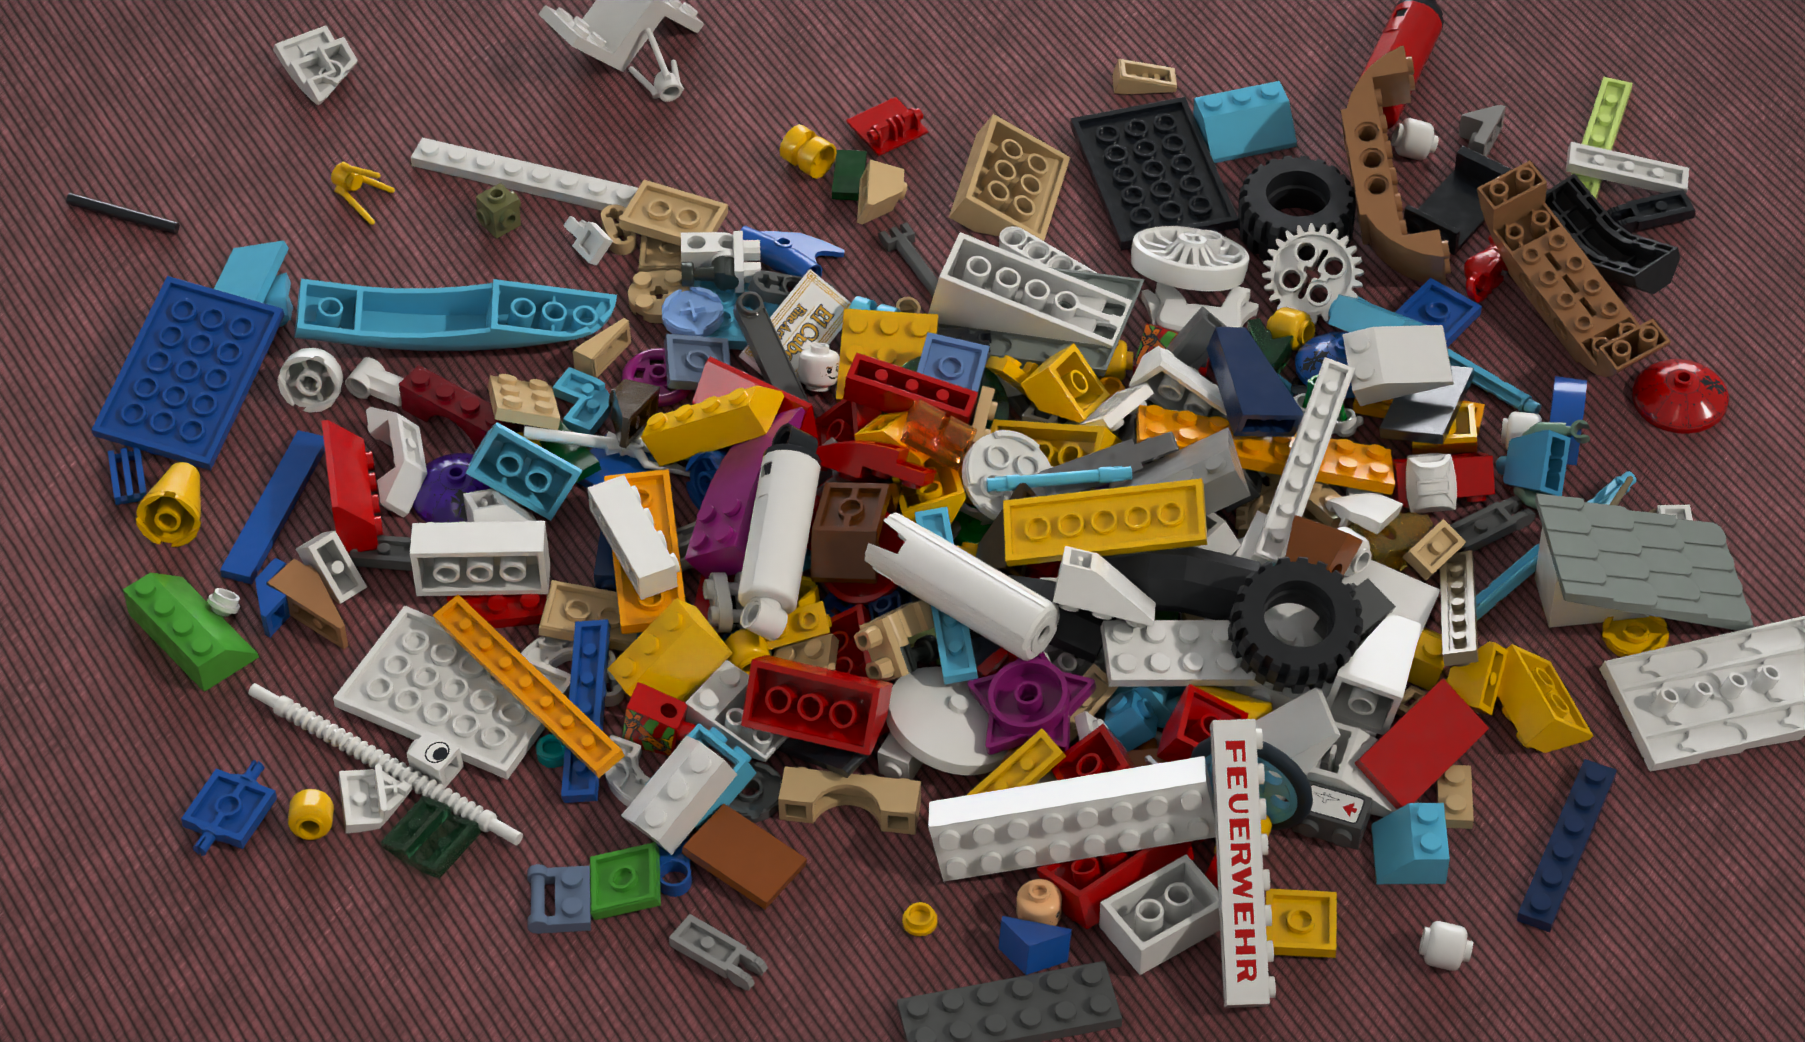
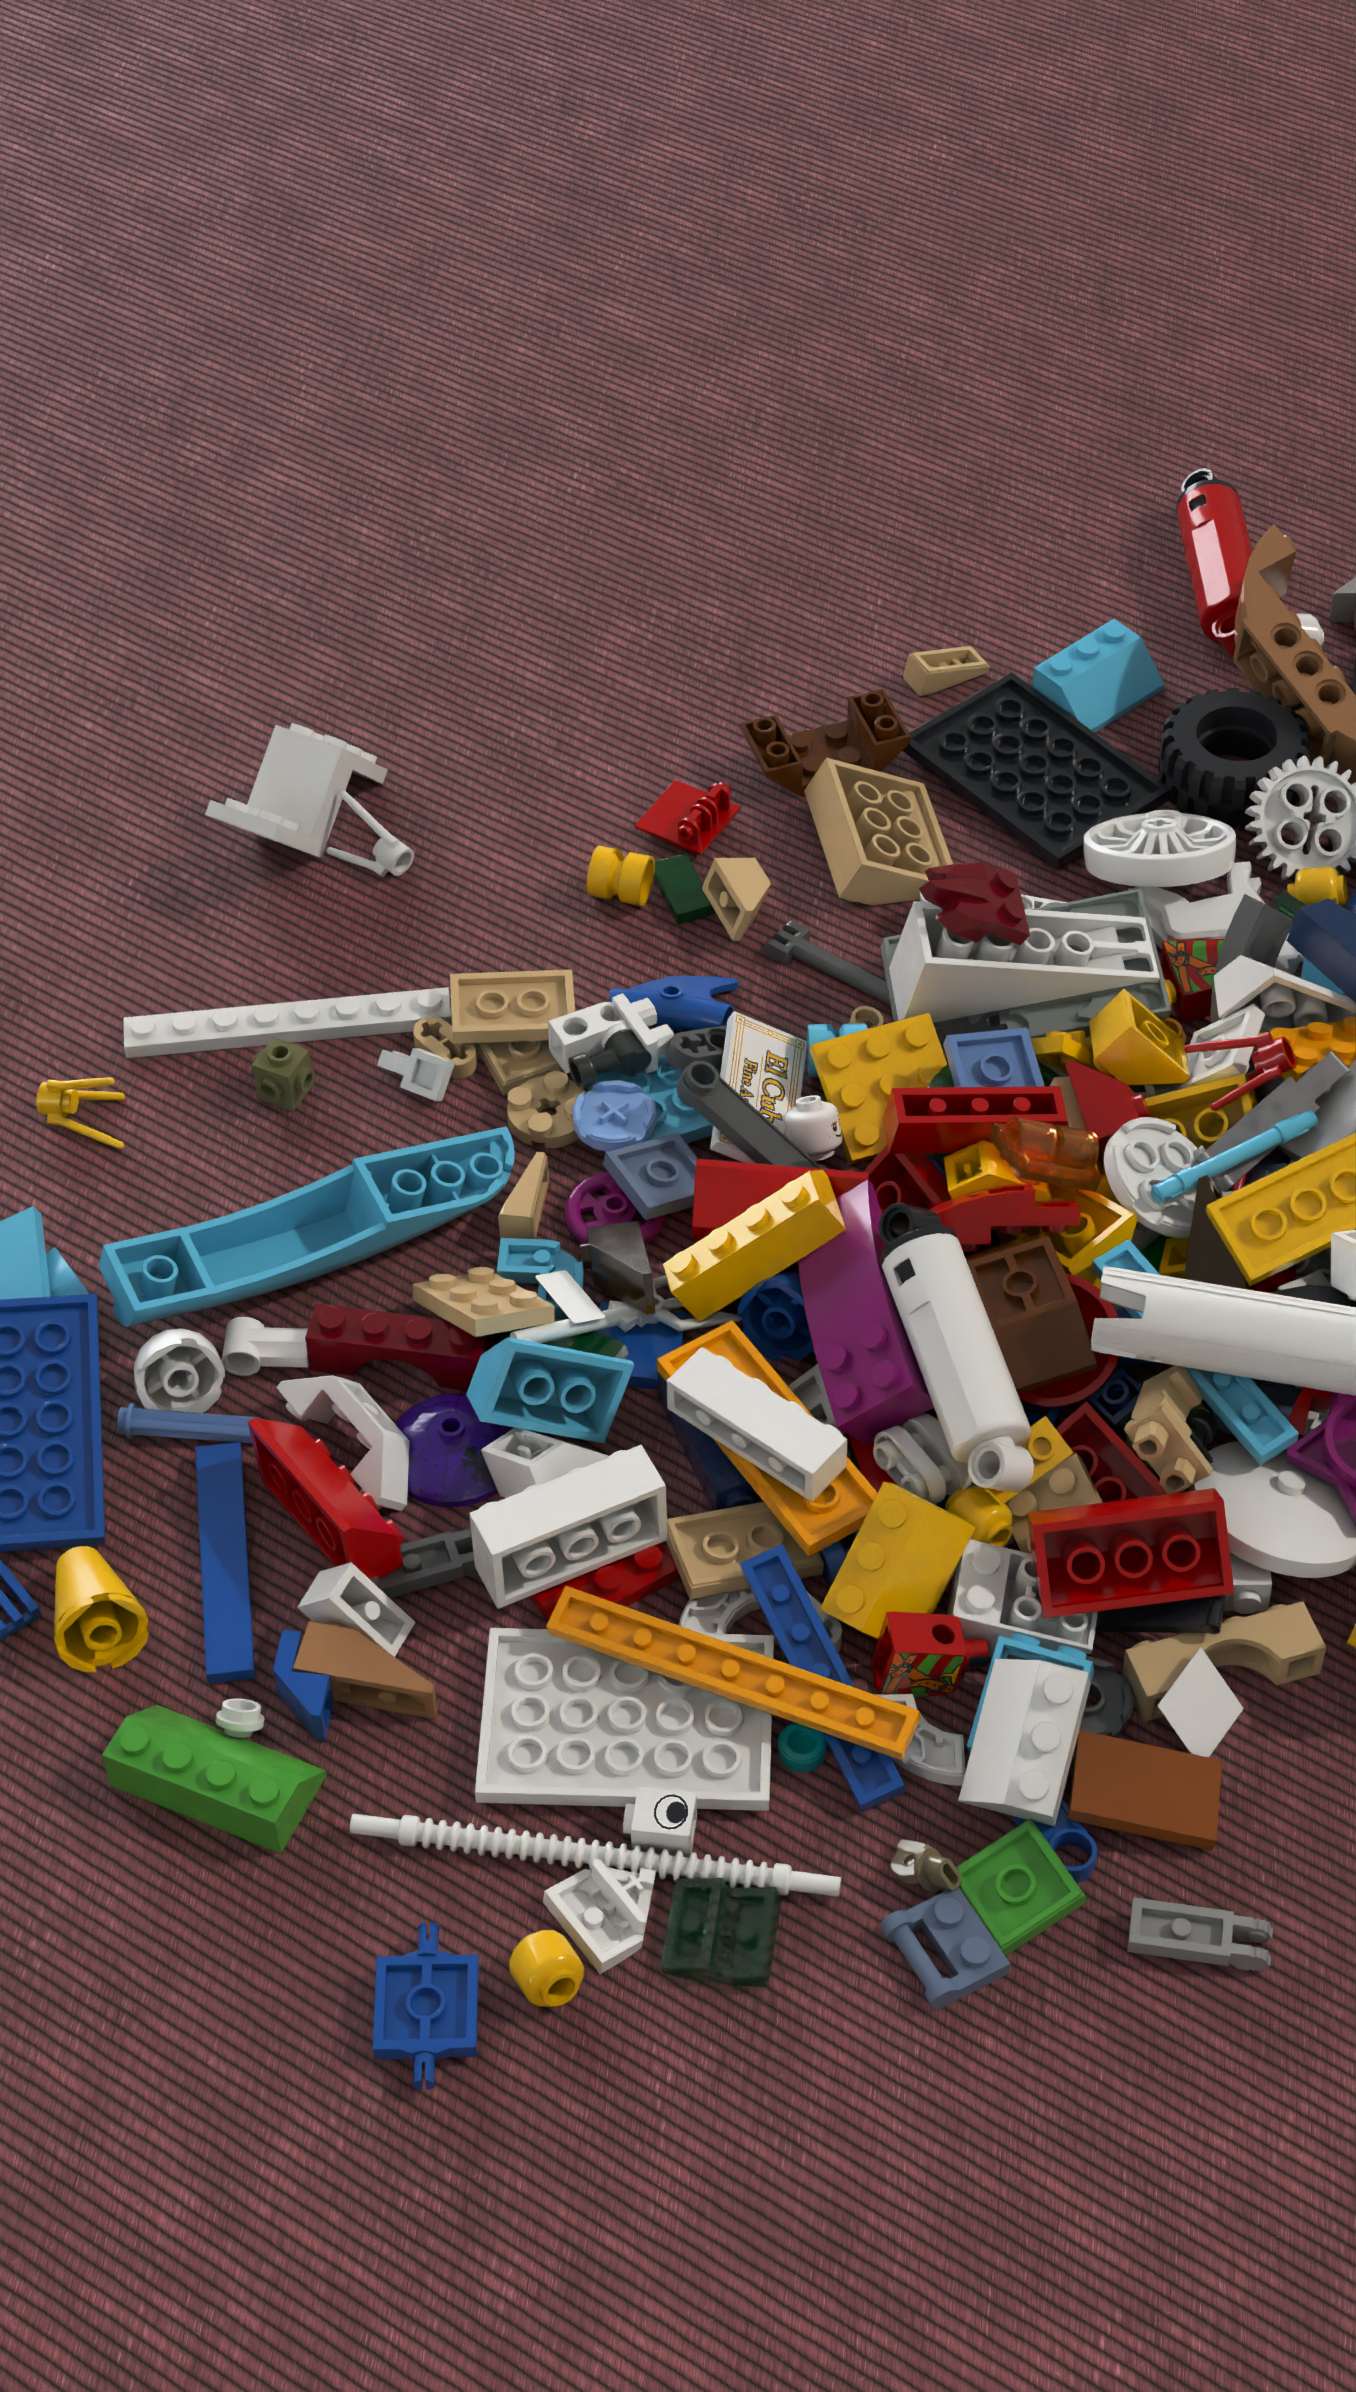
camera: 25 degrees left, 0 degrees up
(270, 400) = (183, 1424): none -> medium blue axle
(576, 848) = (924, 1865): none -> dark tan piece
(582, 419) = (570, 1297): none -> white sticker
(812, 820) = (1200, 1706): none -> white sticker
(1002, 246) = (977, 901): none -> dark red plate
(1005, 411) = (1104, 1101): none -> red slope
(1030, 111) = (867, 739): none -> reddish brown slope
(1124, 423) = (1269, 1061): none -> red plant

